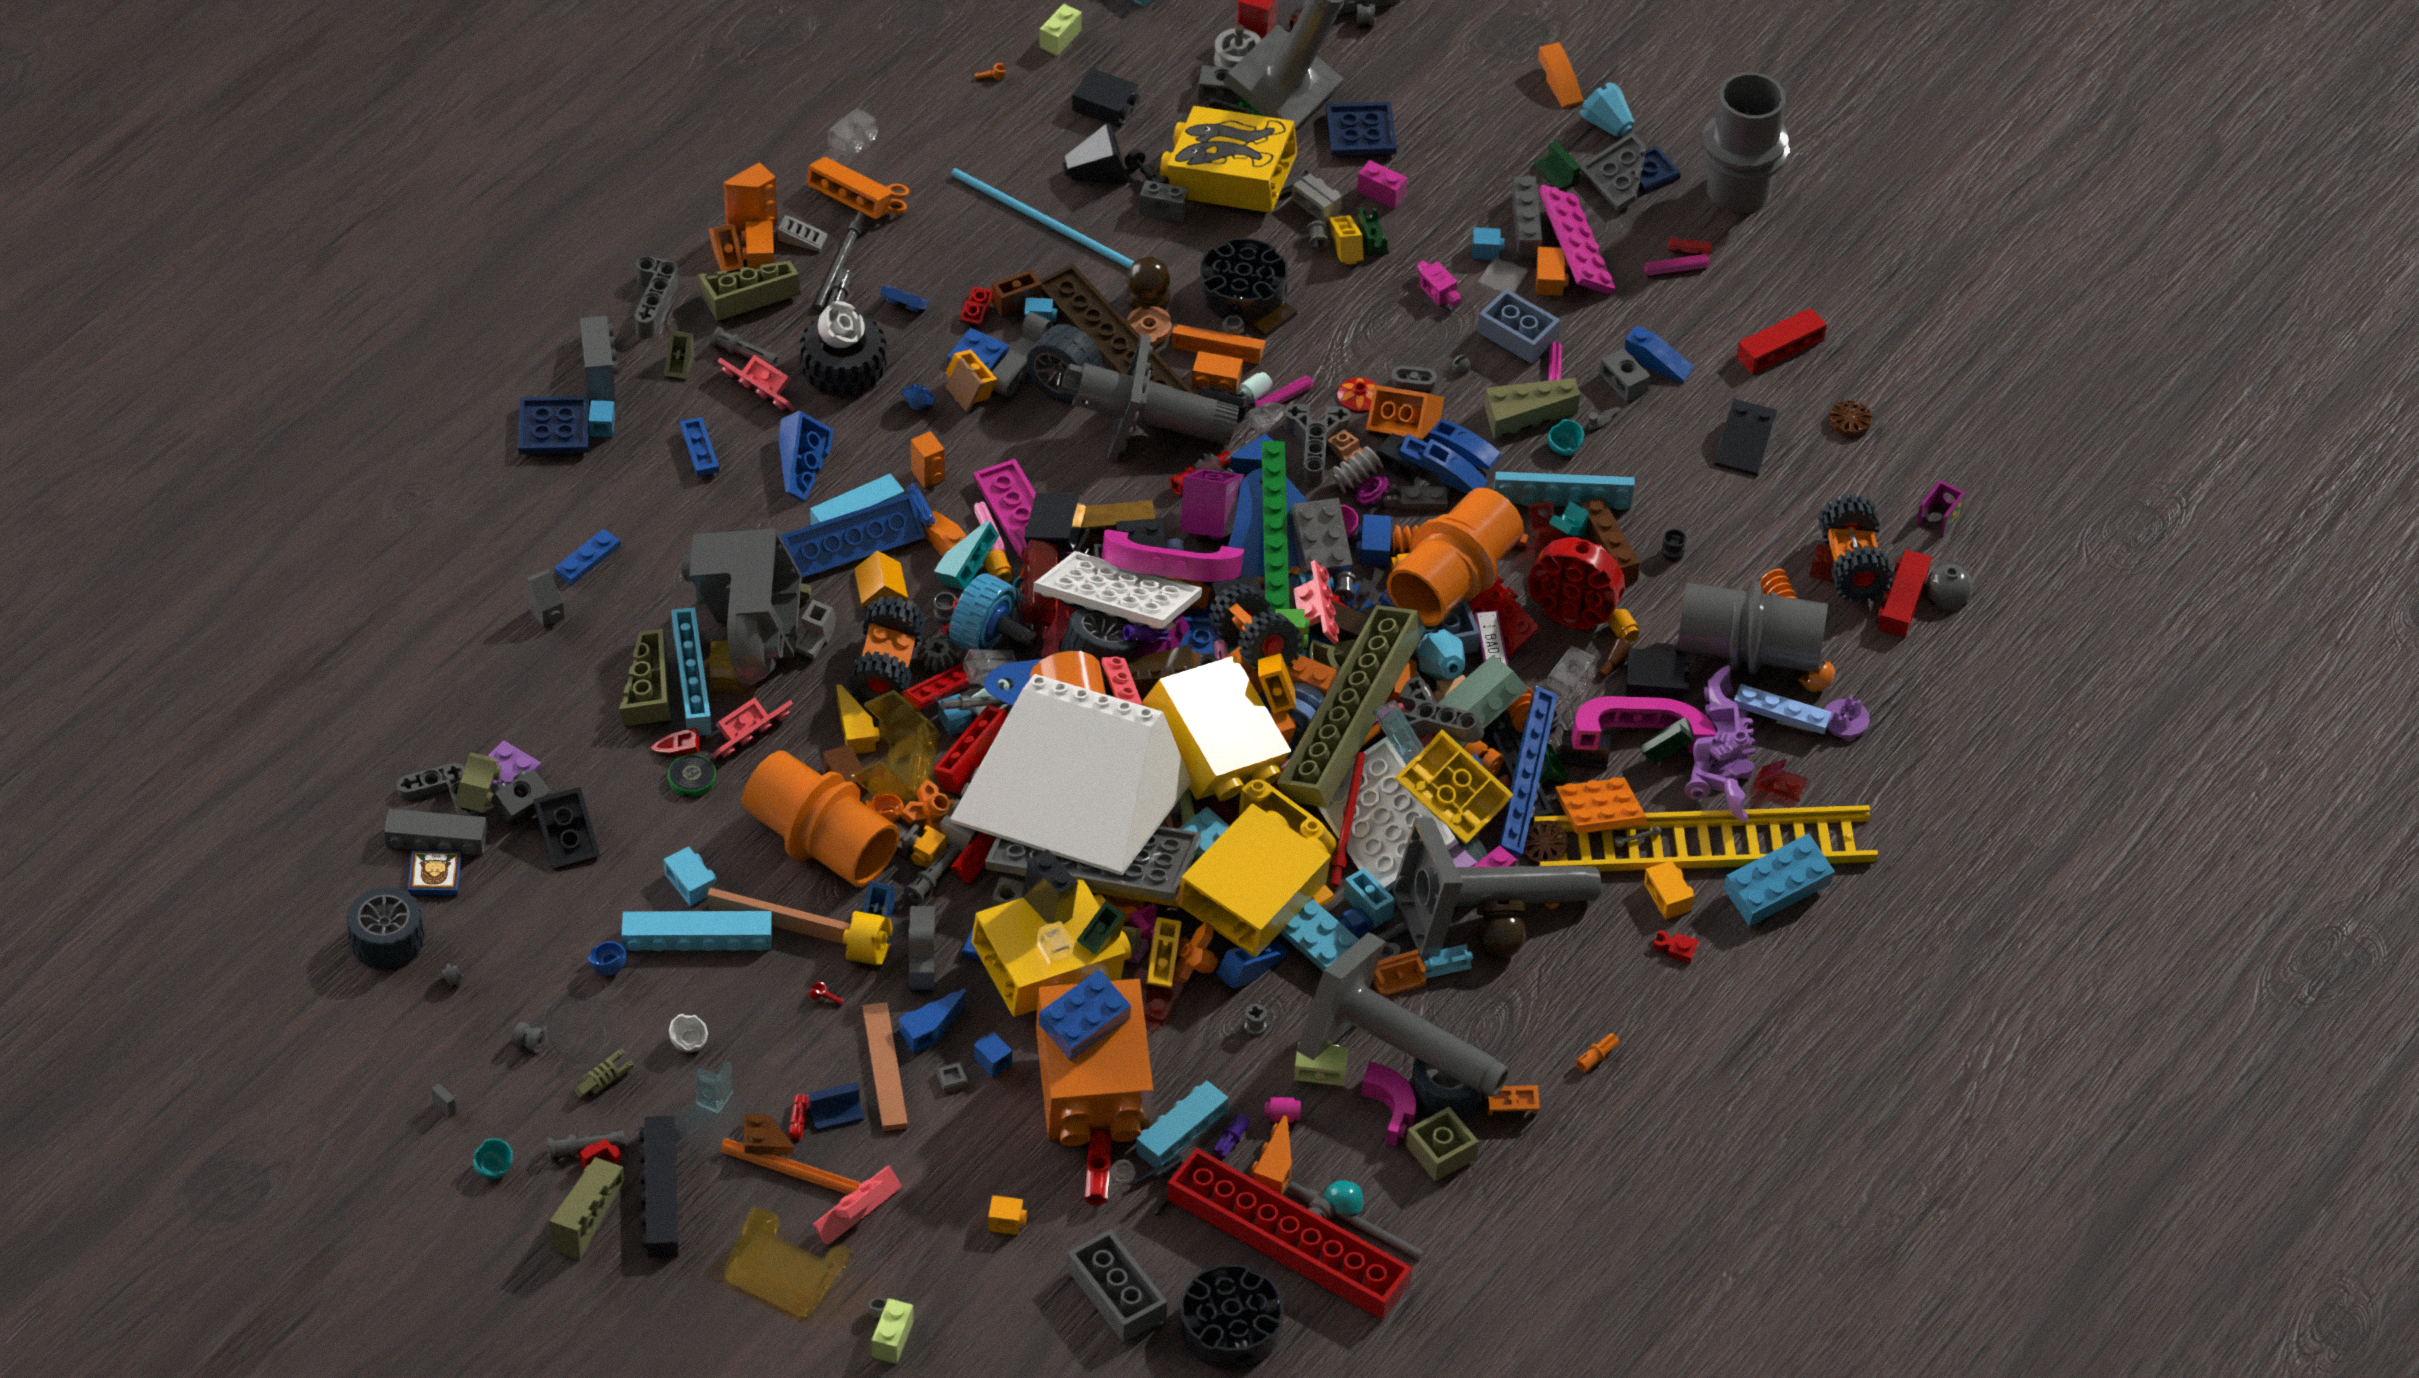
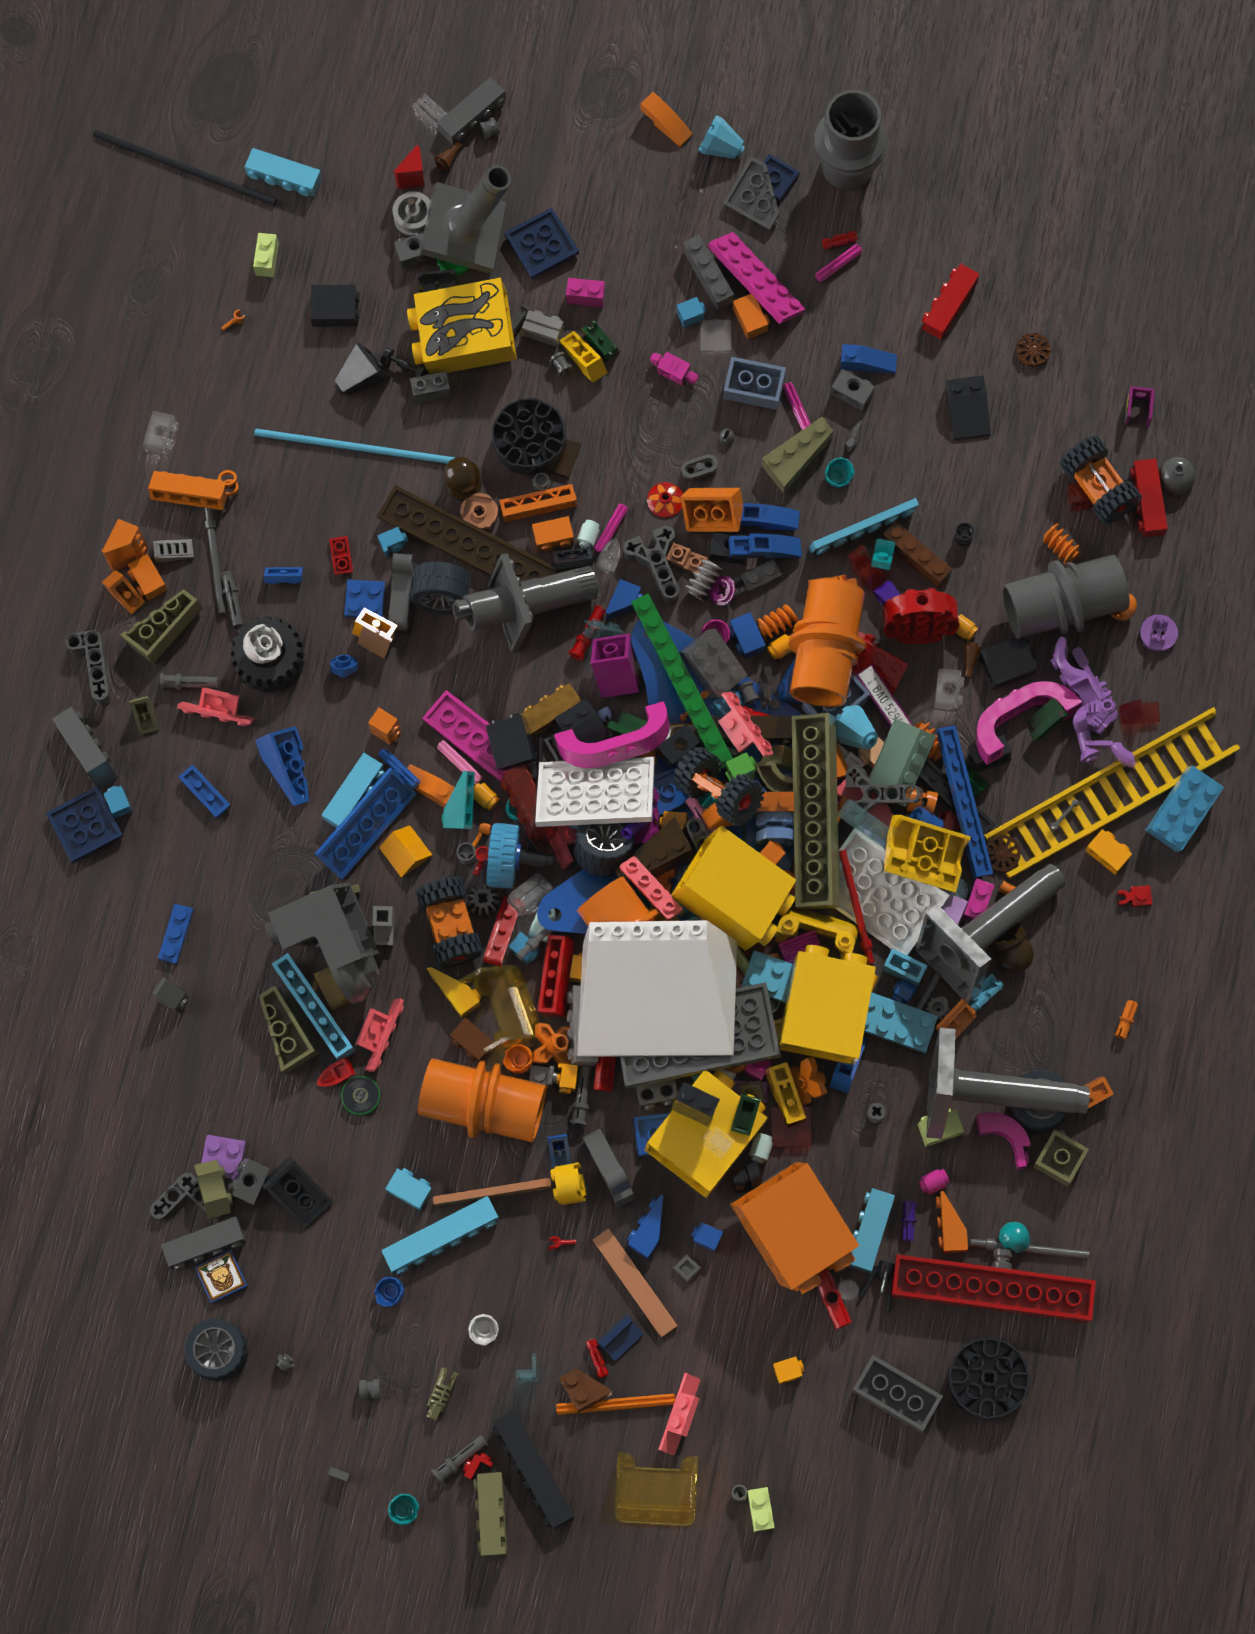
camera: 20 degrees left, 25 degrees up
(1011, 293) = (366, 532): reddish brown brick -> none
(1084, 1014) = (787, 1218): blue brick -> none
(1276, 683) = (759, 829): light orange brick -> none
(1558, 167) = (706, 211): dark green panel -> none
(1600, 805) = (1026, 802): orange plate -> none
(1782, 709) = (1113, 650): light blue plate -> none

